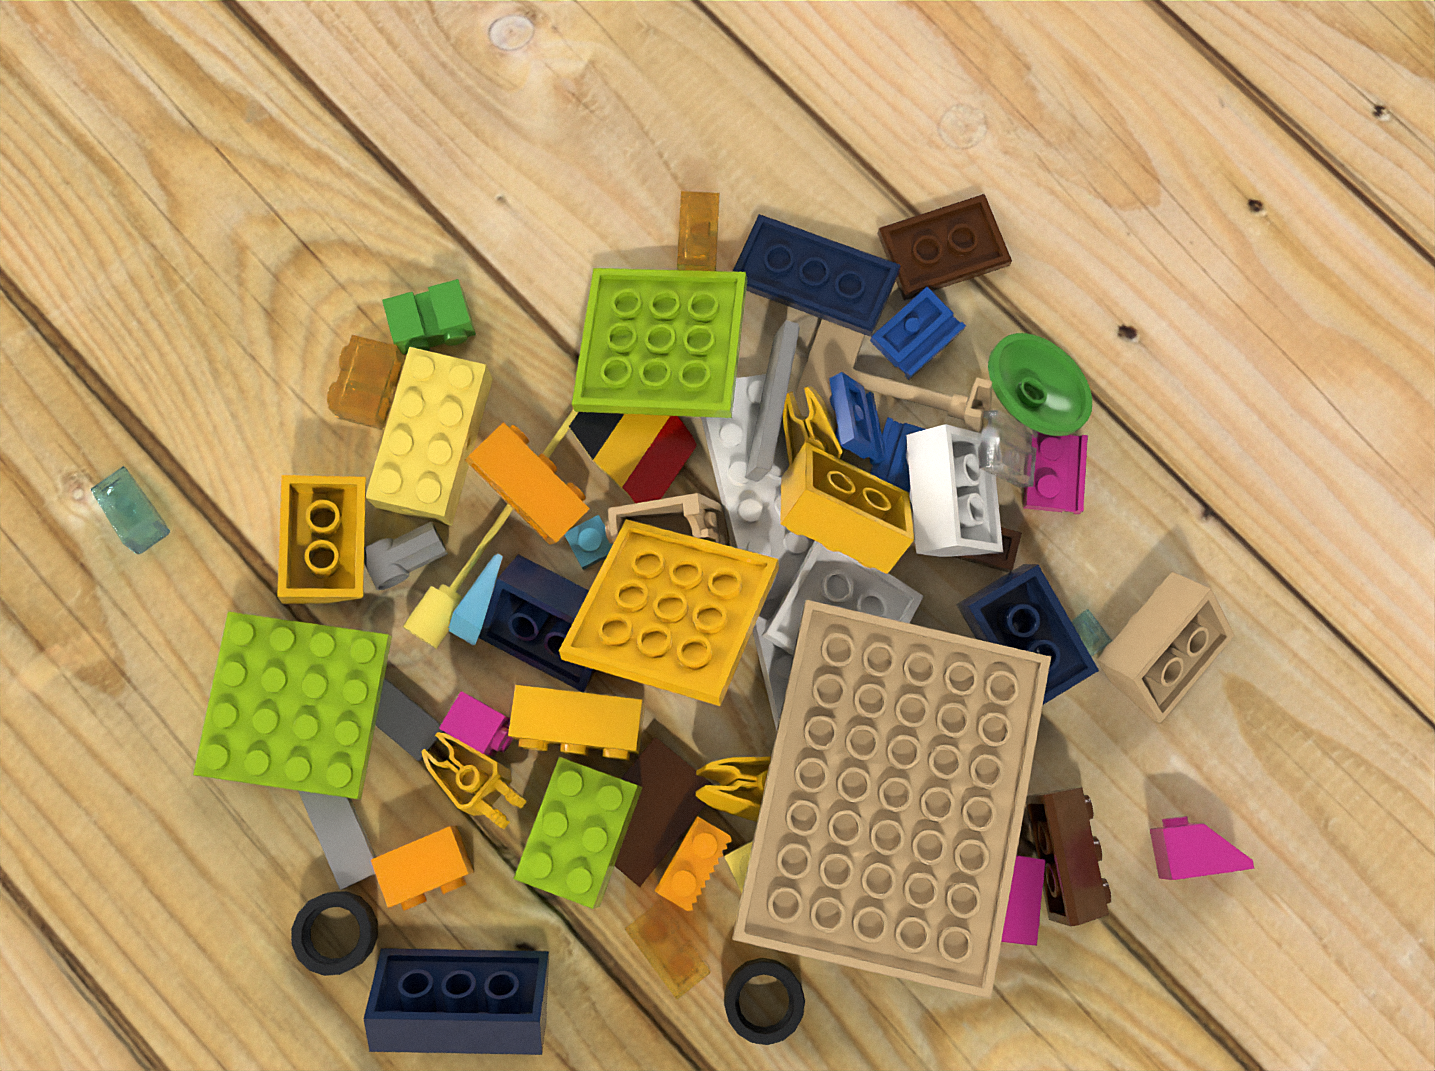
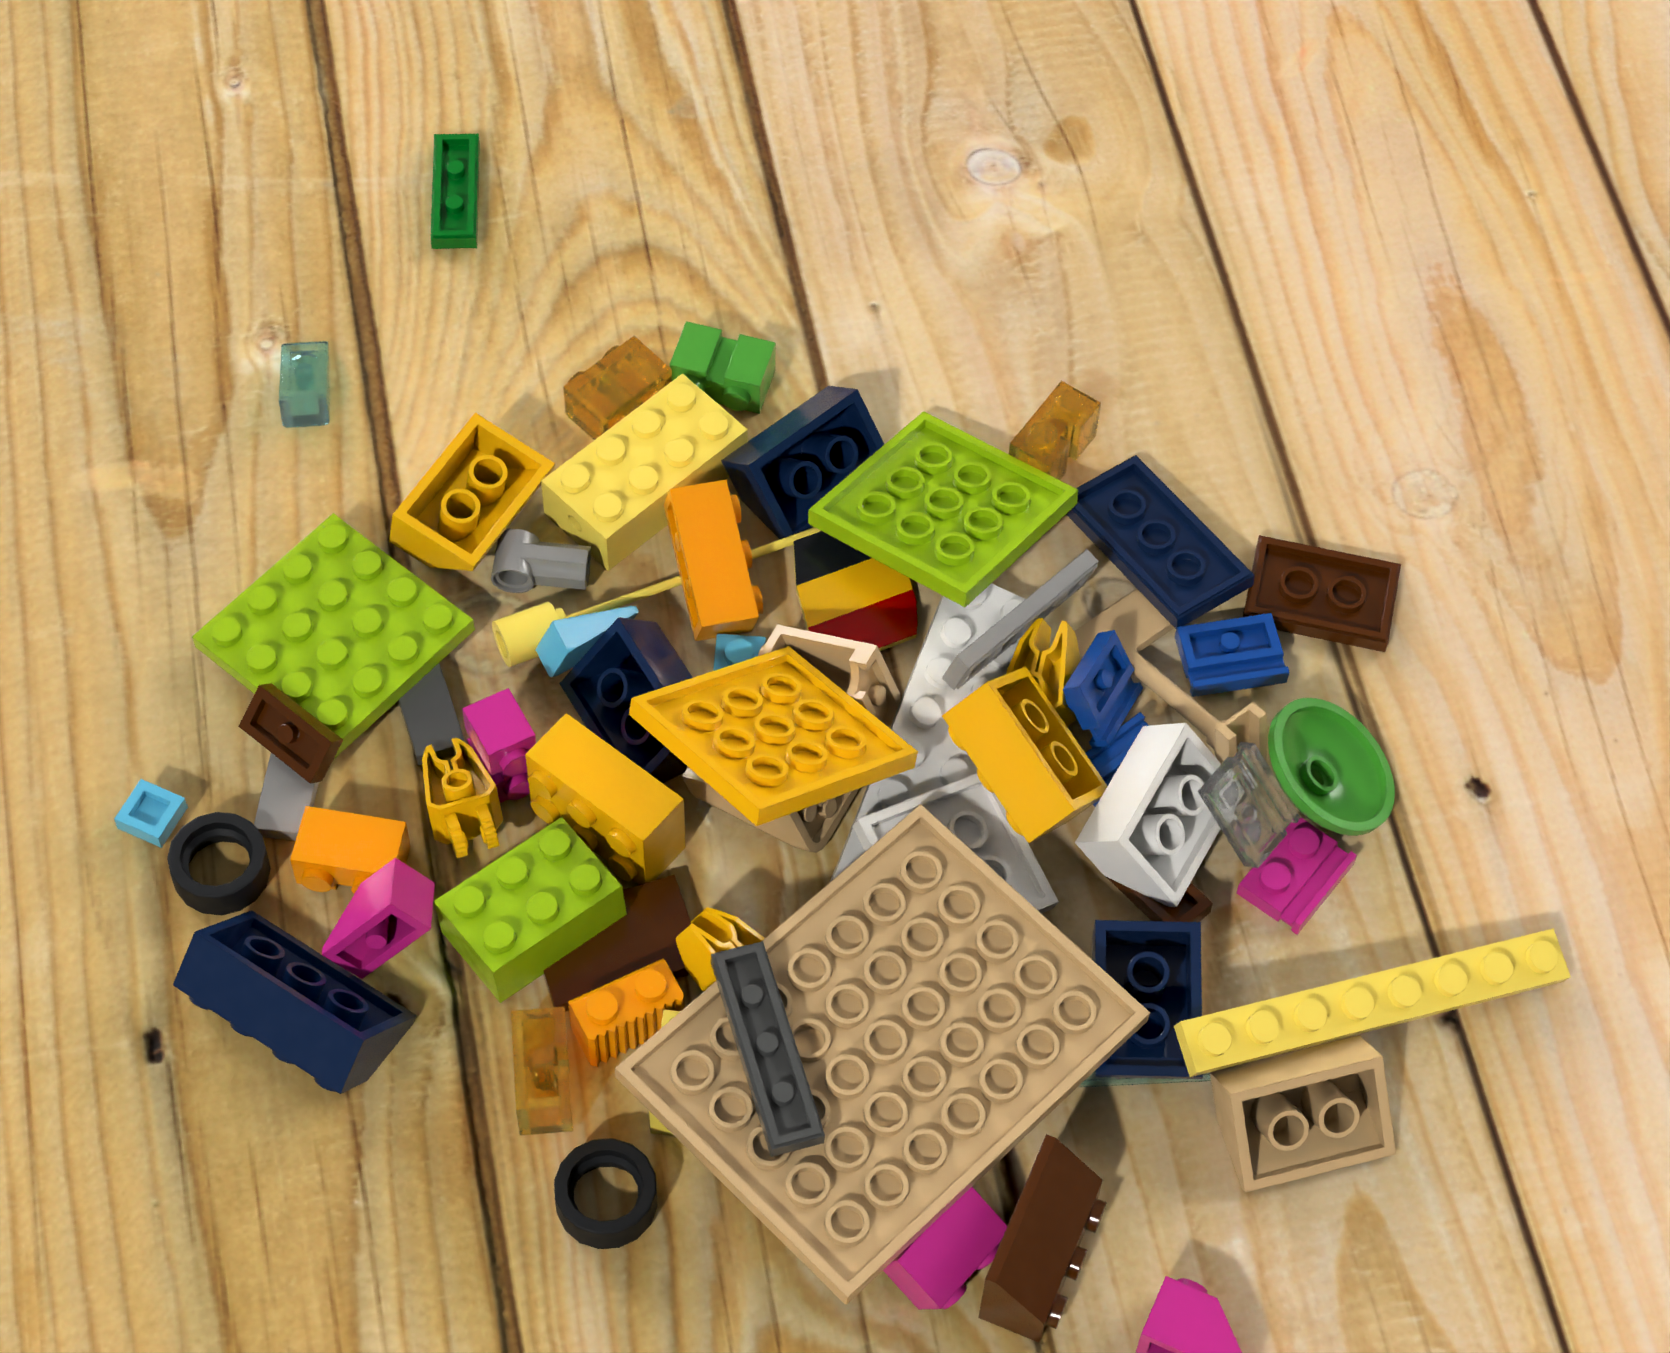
camera: 35 degrees right, 20 degrees down
(132, 283) = (455, 191): none -> green tile
(259, 926) = (151, 813): none -> medium azure plate
(319, 808) = (290, 733): none -> reddish brown plate
(484, 908) = (381, 919): none -> dark pink slope
(537, 358) = (803, 458): none -> dark blue slope
(826, 858) = (767, 1049): none -> dark grey tile
(1166, 546) = (1370, 1002): none -> light yellow plate

